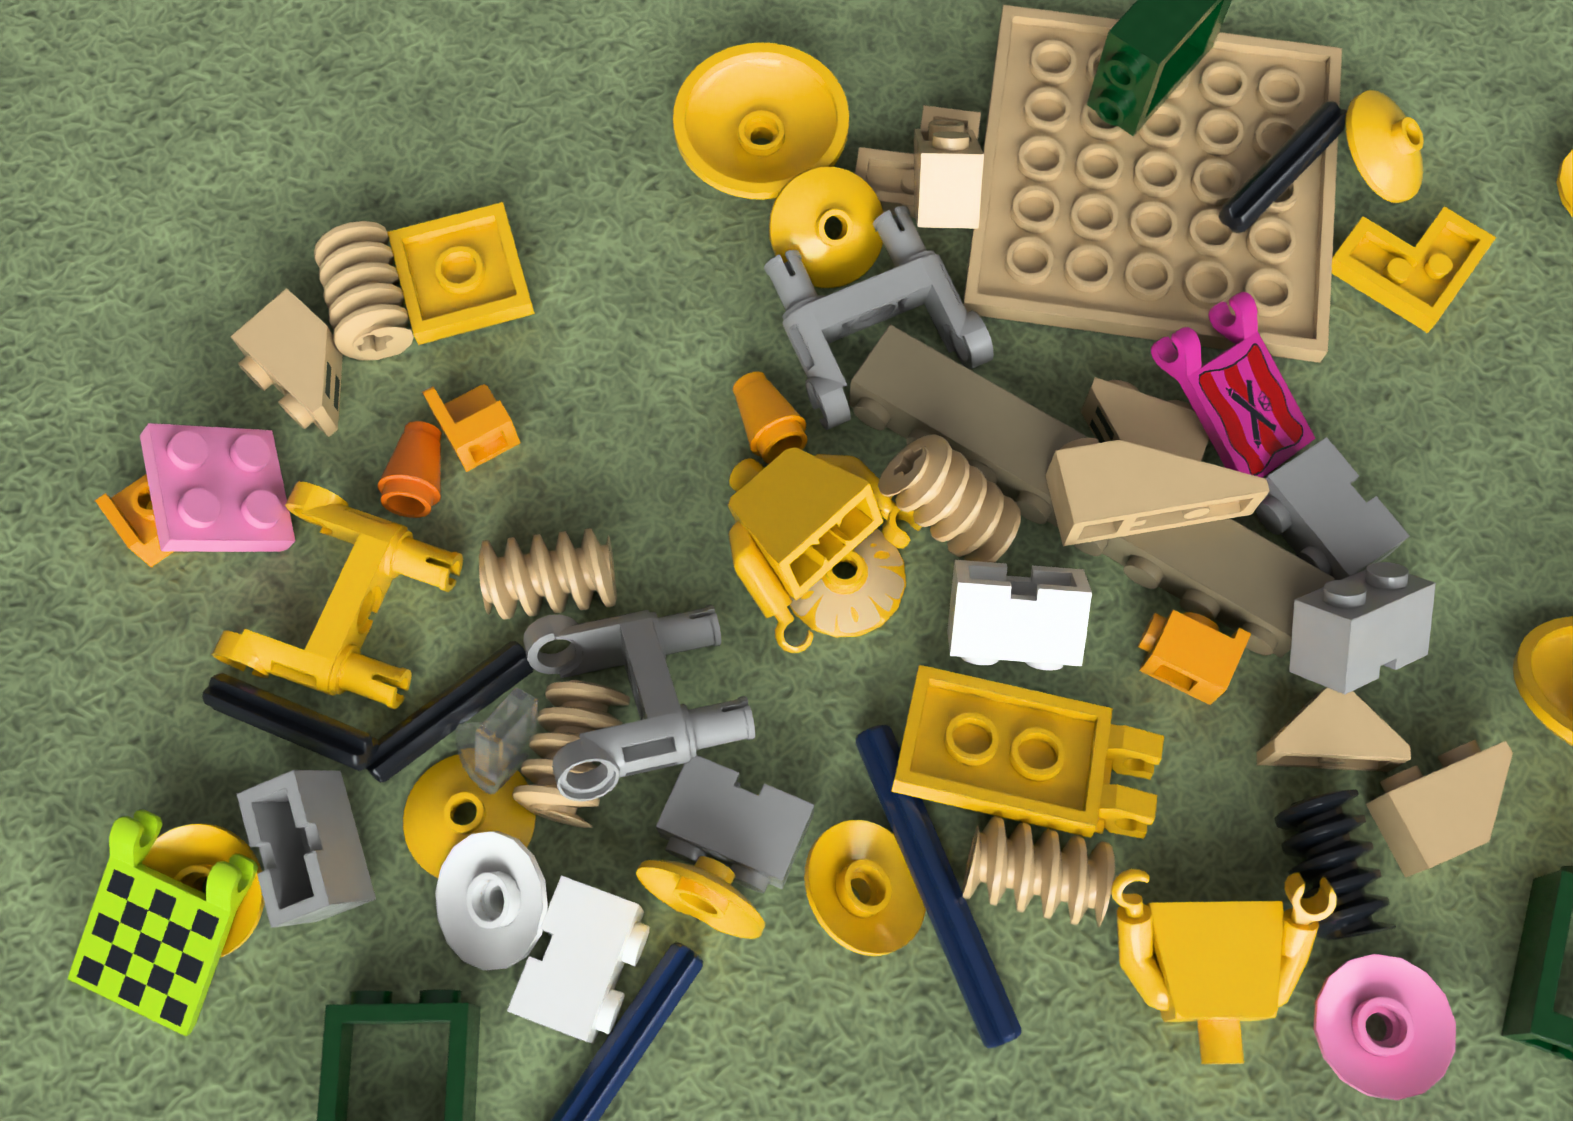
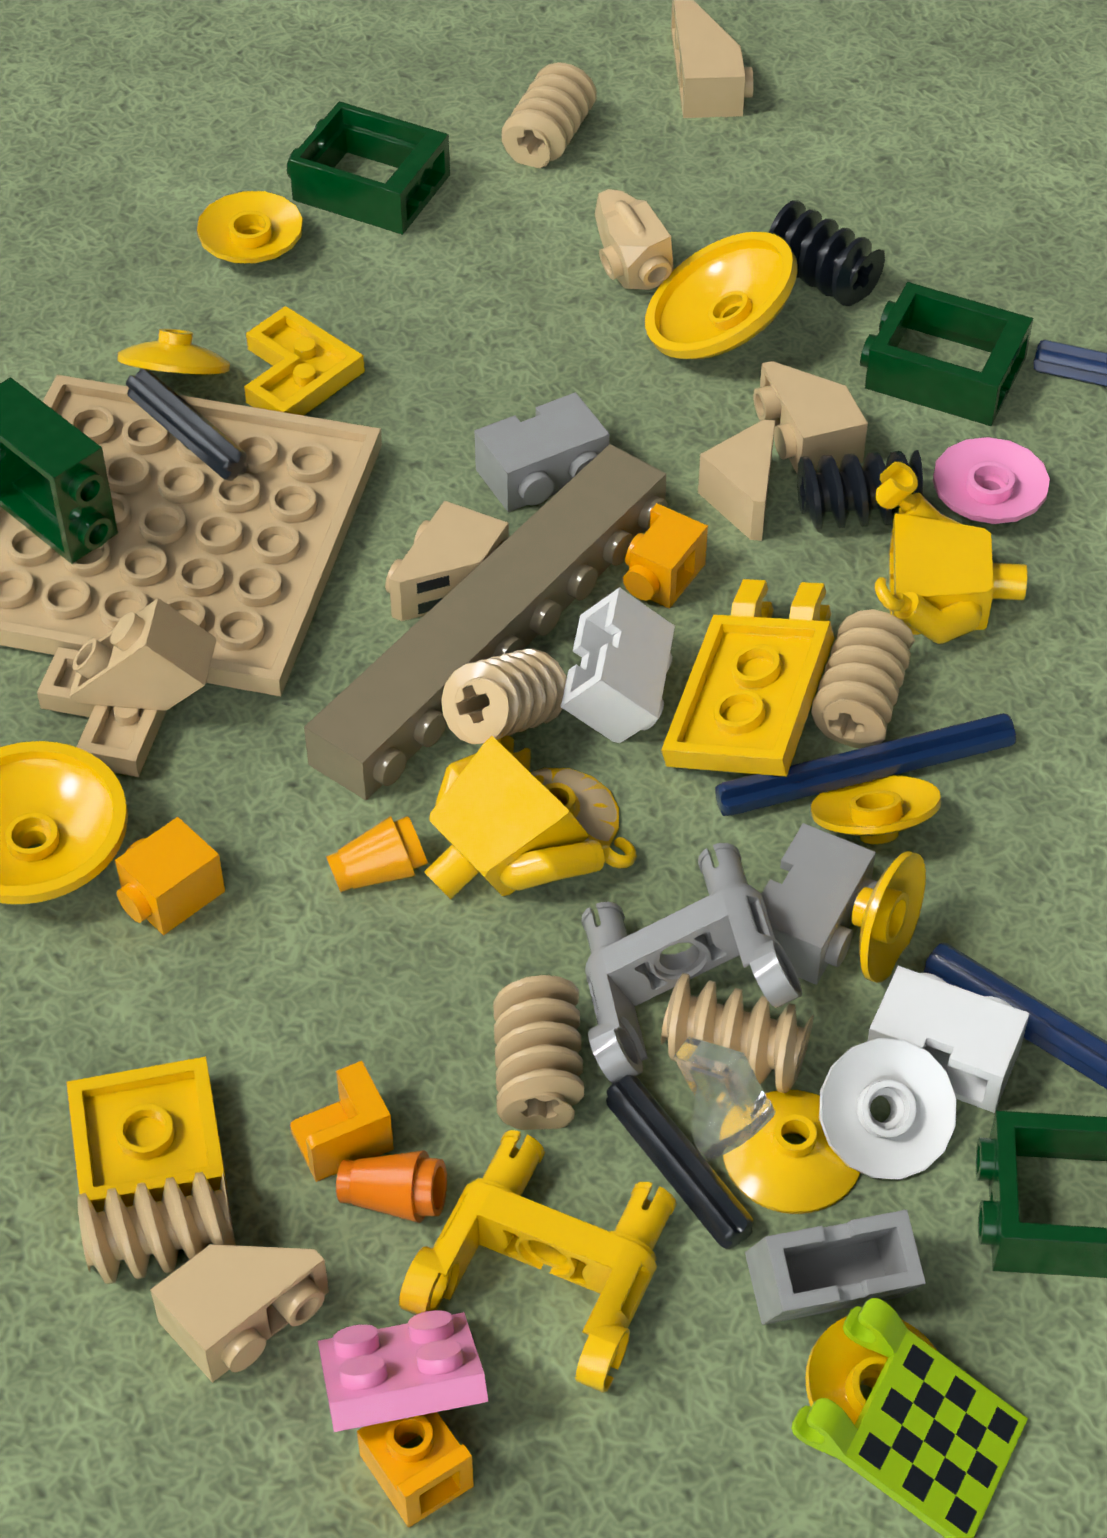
camera: 85 degrees left, 20 degrees down
(291, 721) = (685, 1304): black axle -> none
(725, 244) = (168, 876): none -> light orange brick
(800, 218) = (166, 782): yellow dish -> none
(915, 280) = (279, 798): light grey connector -> none
(1136, 489) = (520, 551): tan slope -> none
(1237, 392) = (416, 485): dark pink flag -> none
(1361, 624) = (658, 430): light grey brick -> none

